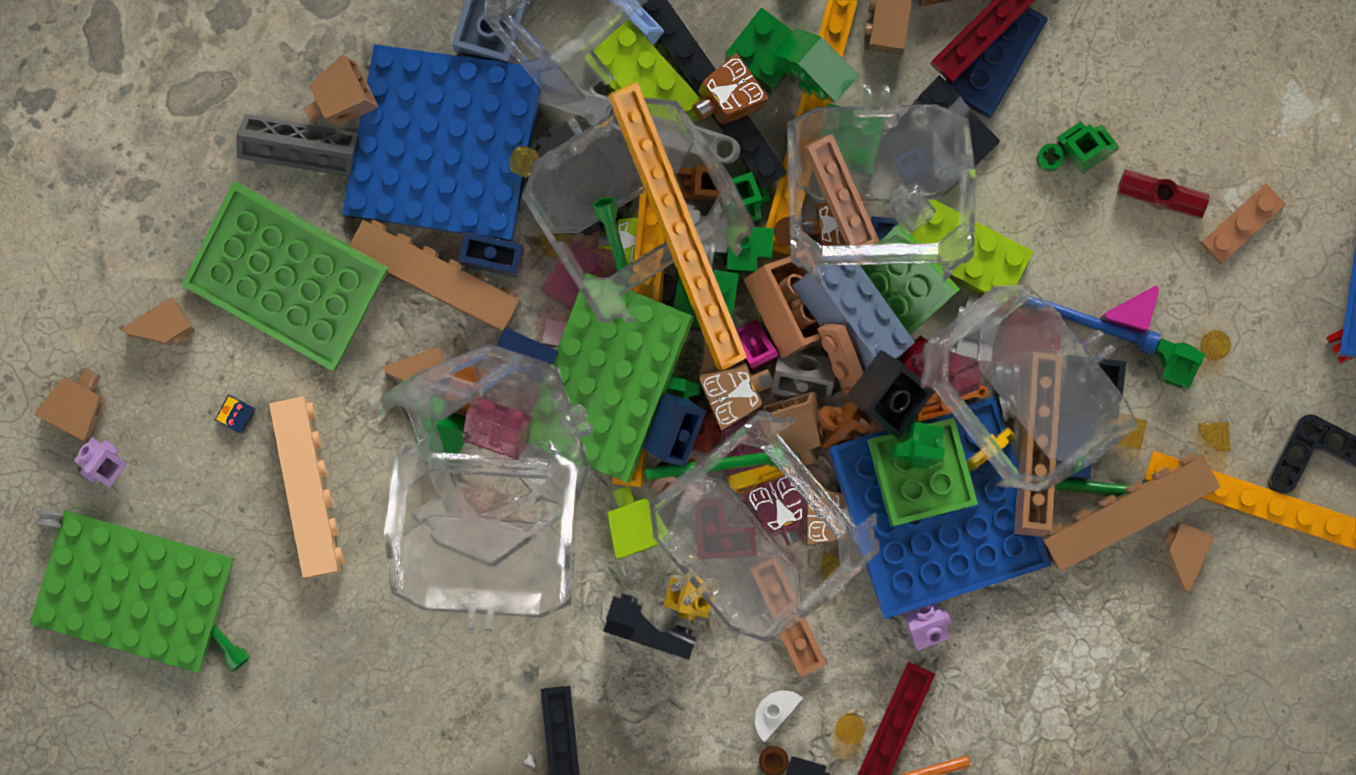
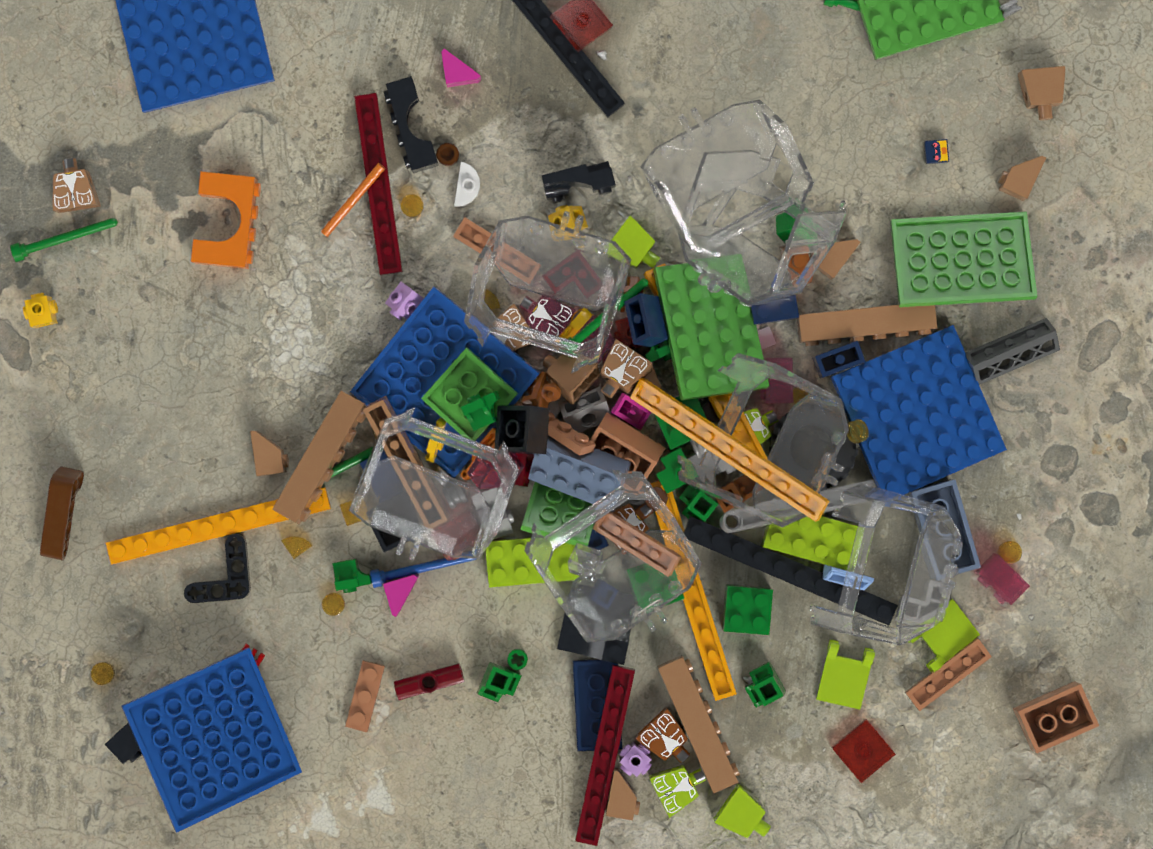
camera: 145 degrees right, 5 degrees up
(100, 462) = (1002, 64): lavender brick -> none
(305, 487) = (859, 133): light nougat brick -> none
(340, 93) = (1006, 402): medium nougat torso -> none
(497, 428) = (759, 247): clear pink brick -> none
(605, 210) = (782, 431): green piece -> none
(730, 93) = (752, 563): dark orange torso -> none
(815, 65) = (708, 615): green brick -> none

